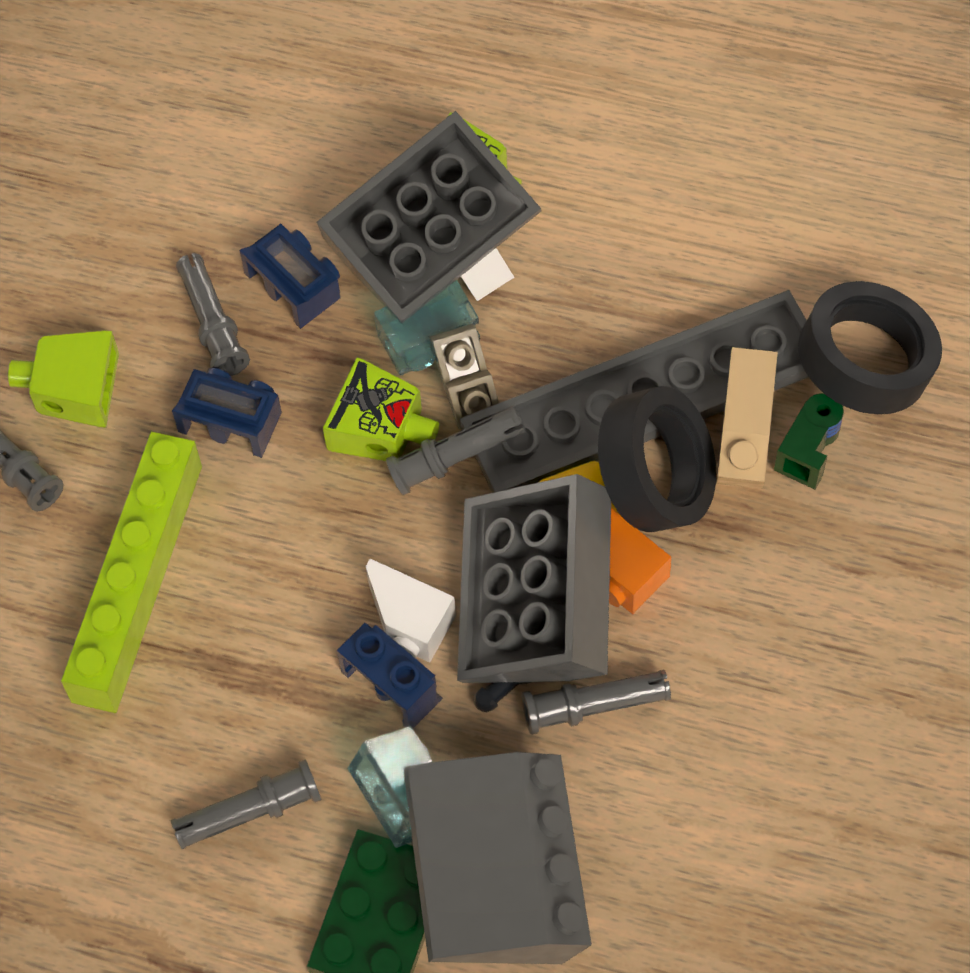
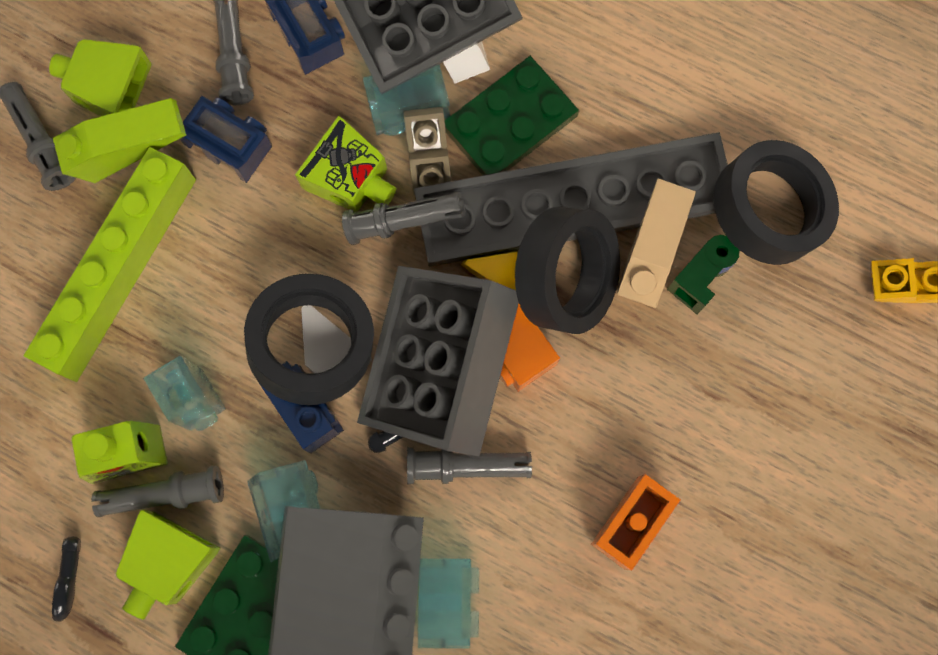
camera: 10 degrees right, 15 degrees up
(110, 434) = (117, 140): none -> lime slope
(160, 923) = (65, 585): none -> black piece
(188, 766) = (116, 452): none -> lime torso
(257, 684) = (185, 394): none -> clear light blue brick
(271, 876) = (161, 562): none -> lime torso
(387, 636) = (306, 291): none -> black tyre
(550, 325) = (510, 118): none -> dark green plate
(609, 848) = (446, 603): none -> clear light blue brick
(799, 712) = (635, 522): none -> orange brick

